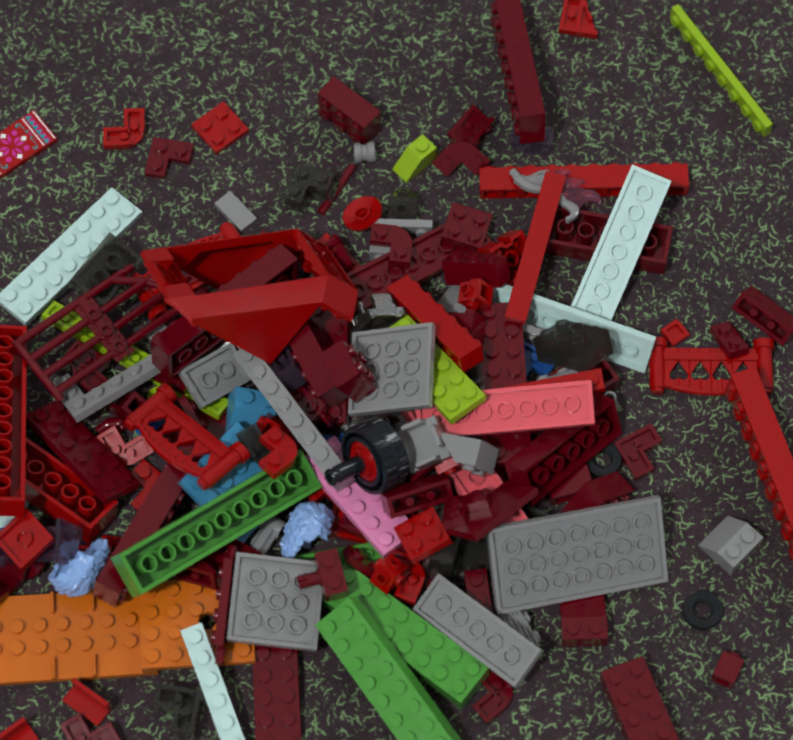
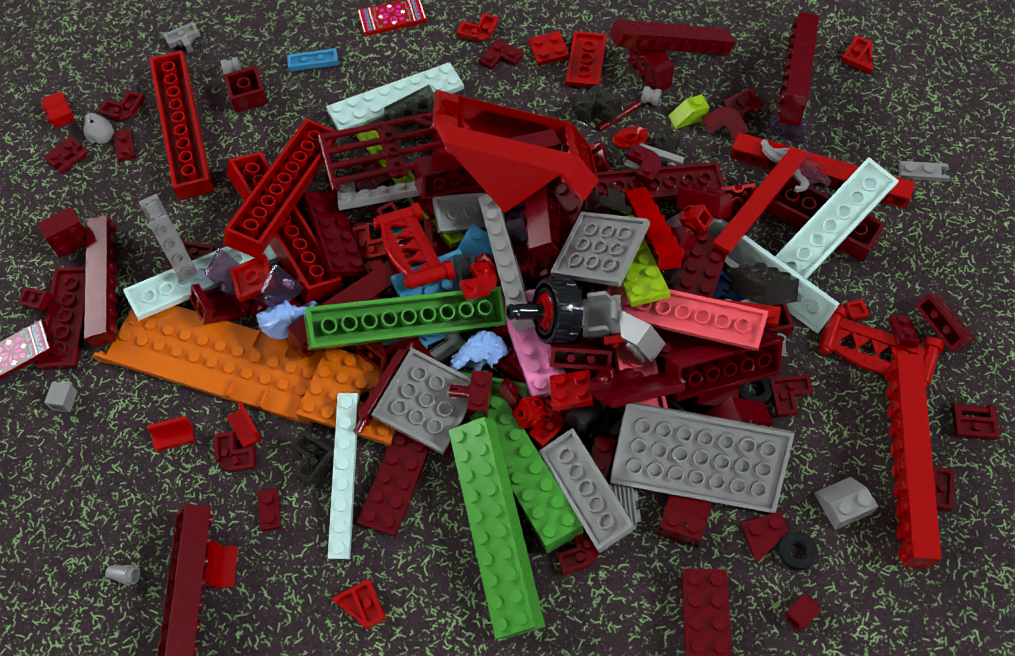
camera: 25 degrees right, 5 degrees down
(235, 212) = (533, 104): light grey tile -> none
(271, 129) = (586, 59): none -> red plate
(349, 370) = (563, 235): dark red brick -> none
(365, 77) = (671, 37): none -> dark red brick
(466, 227) = (709, 170): dark red plate -> none
(664, 606) = (764, 533): none -> dark red wing
(690, 143) = (923, 171): none -> light grey hinge
(723, 74) = (969, 127): lime plate -> none

